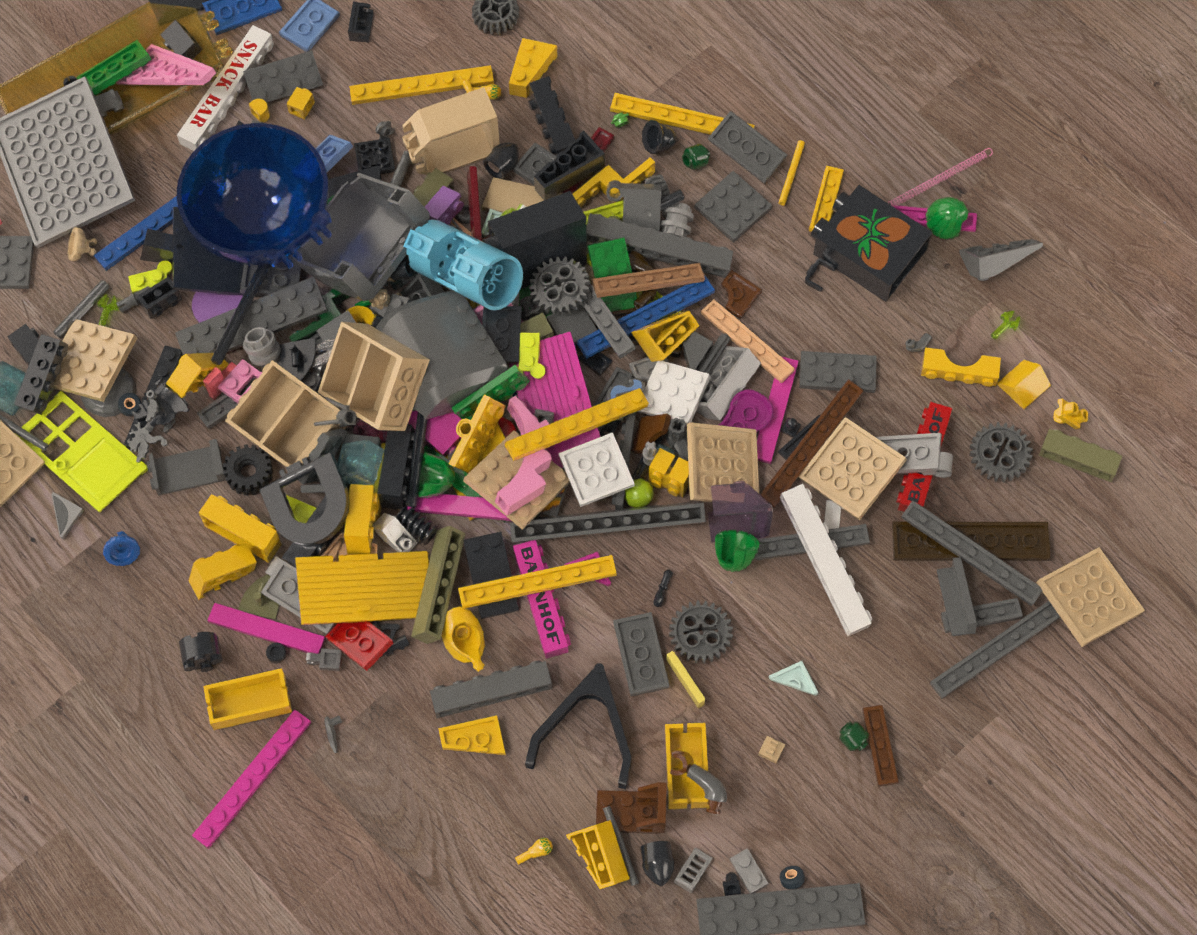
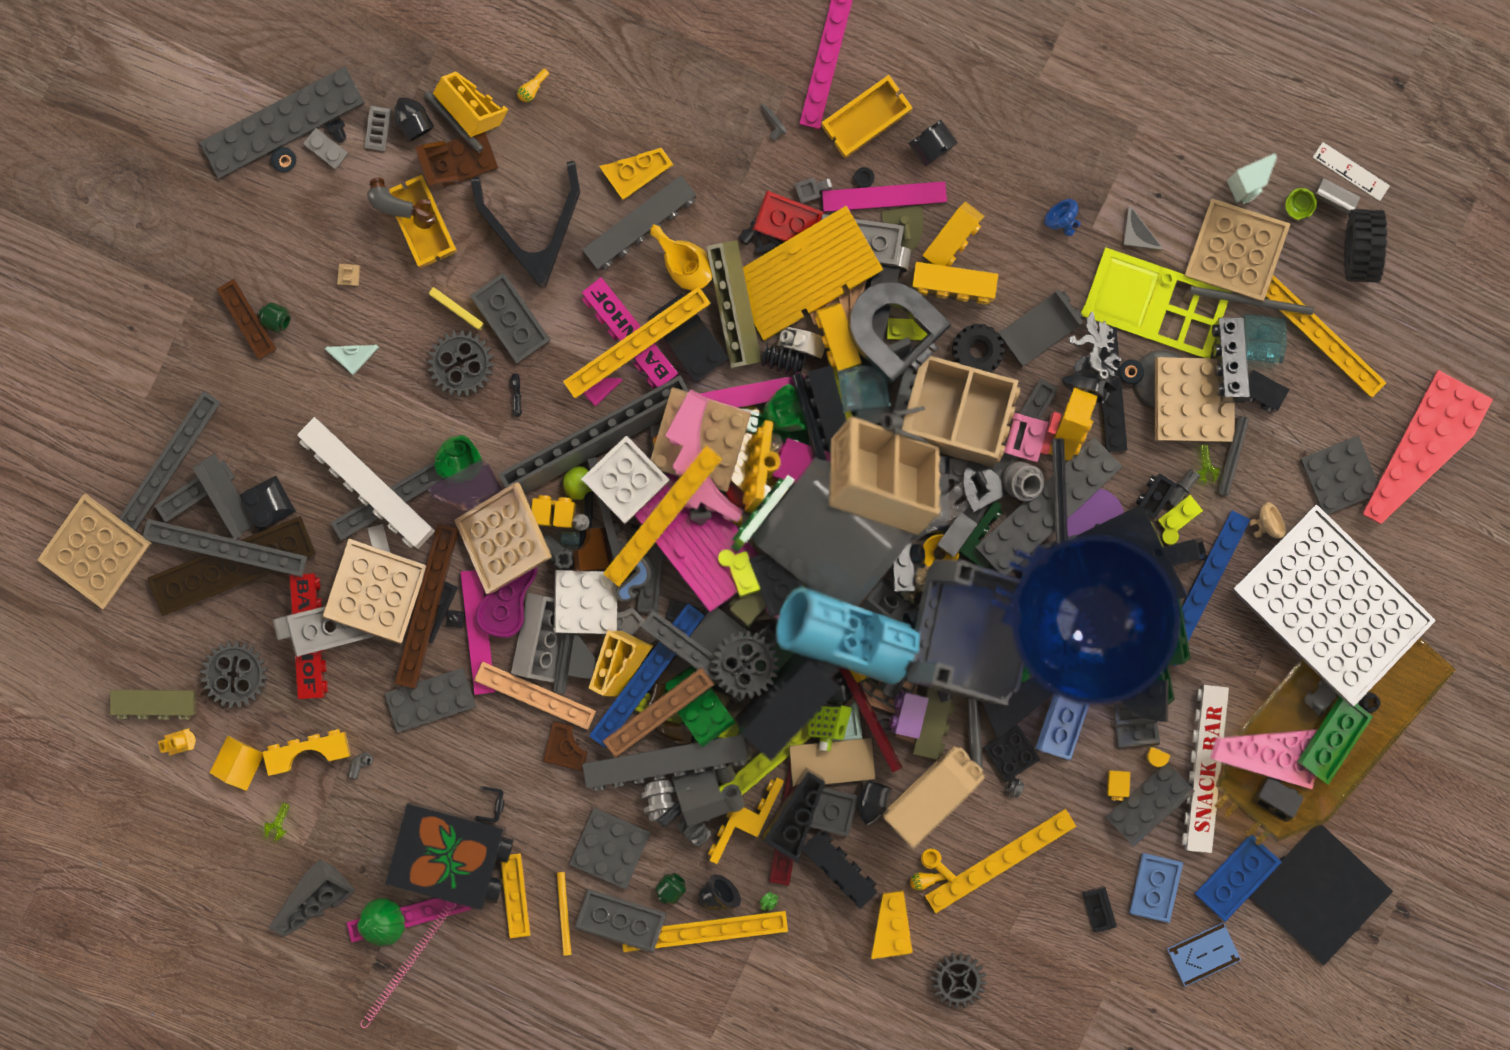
camera: 160 degrees right, 20 degrees up
(920, 582) = (267, 503): none -> black slope

